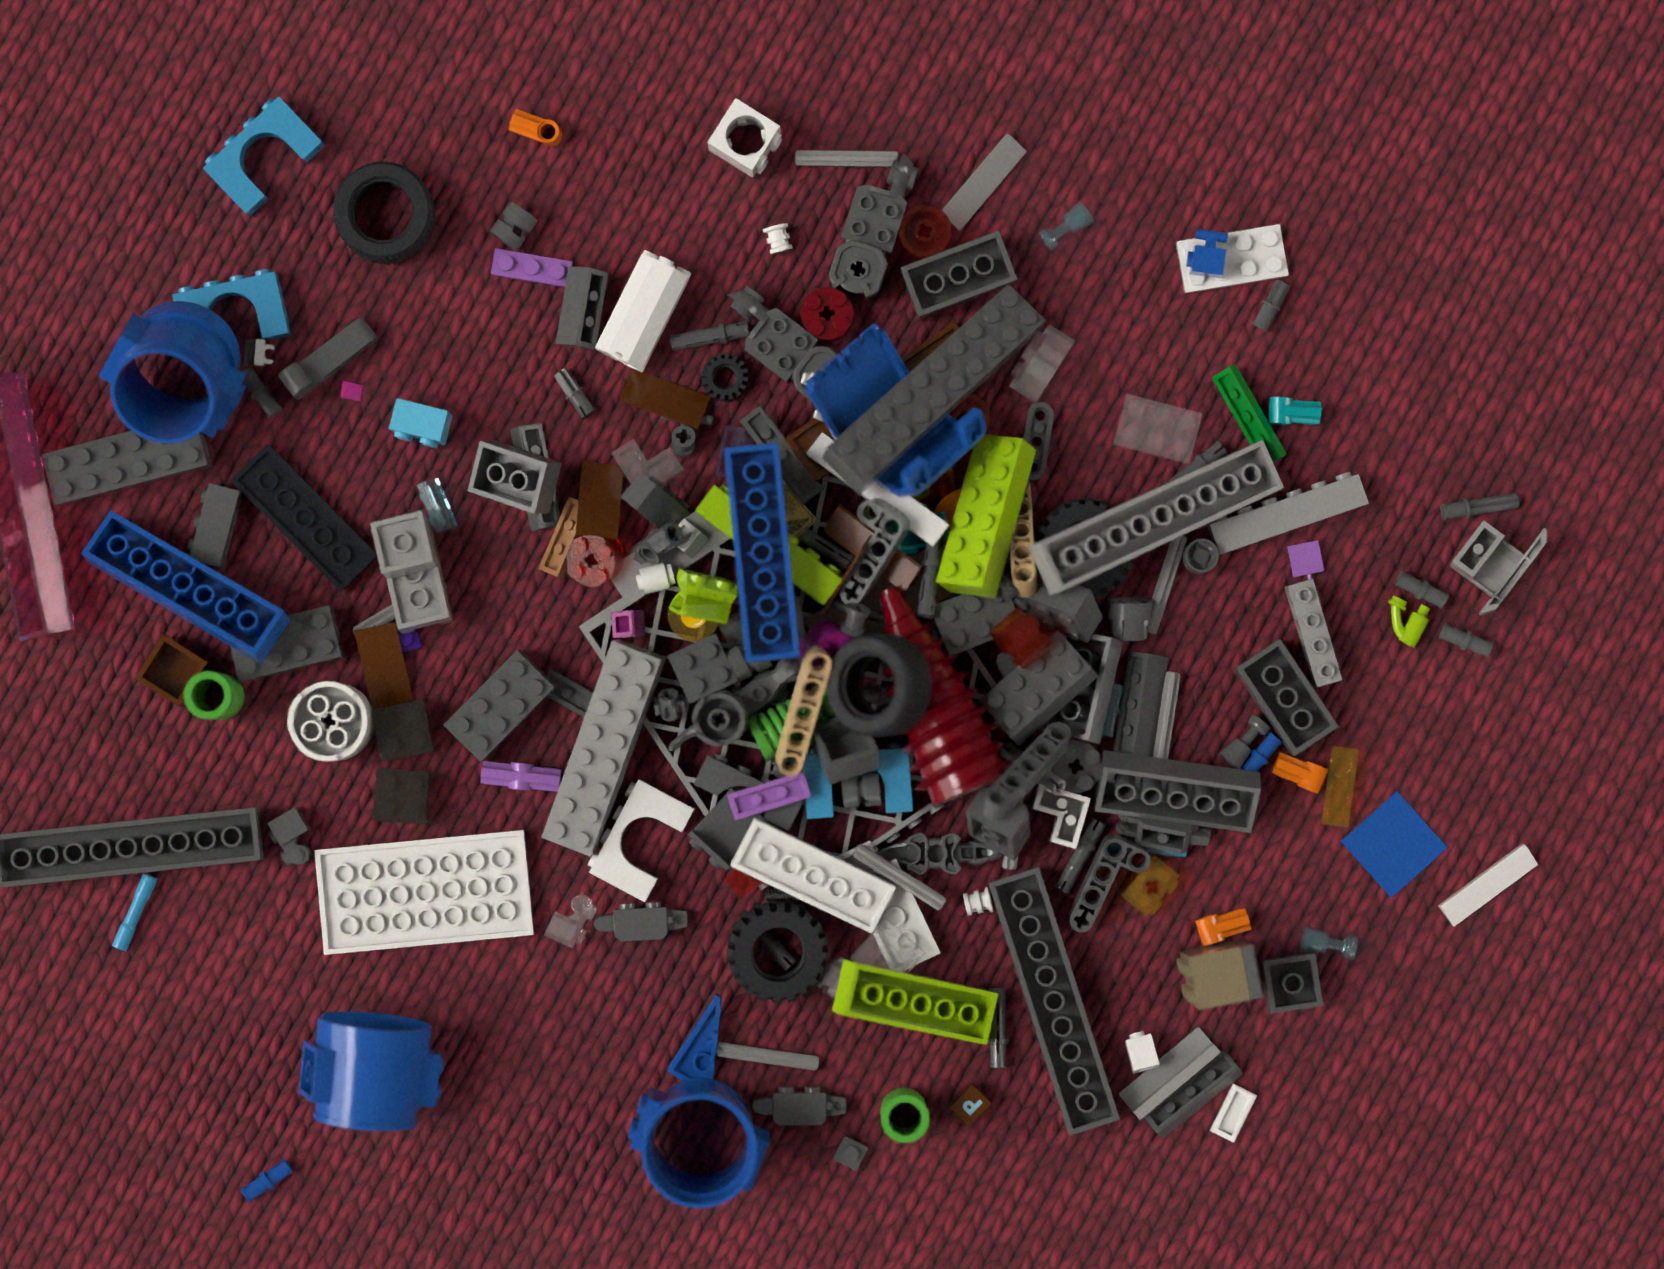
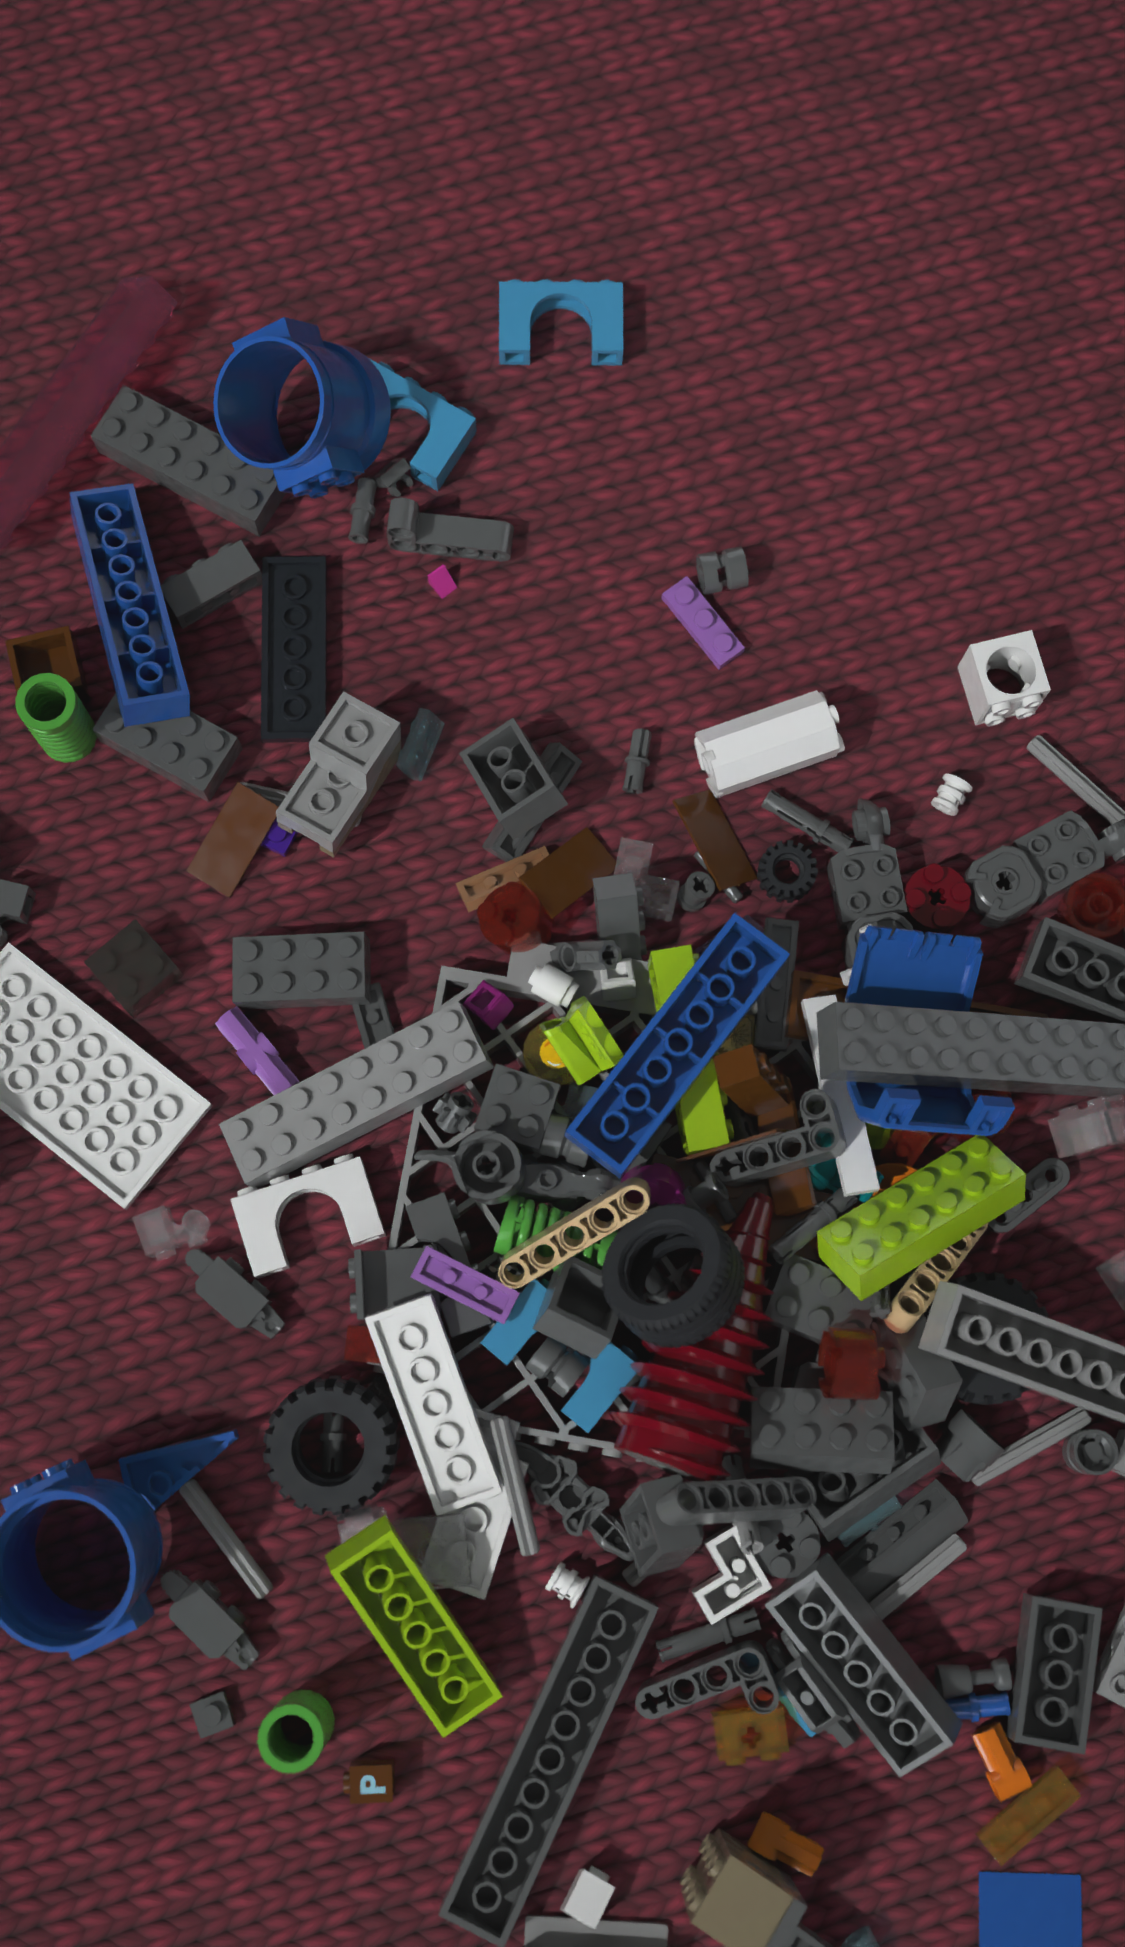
camera: 40 degrees right, 10 degrees down
(349, 710) = (141, 865): white brick -> none
(355, 188) = (613, 415): black tyre -> none
(403, 730) = (194, 911): clear smoke piece -> none
(420, 422) = (475, 657): medium azure piece -> none
(533, 127) = (819, 508): orange piece -> none
(581, 308) = (715, 692): dark grey brick -> none
(821, 531) = (751, 1080): none -> reddish brown brick
(998, 1060) = (440, 1761): dark grey pin -> none

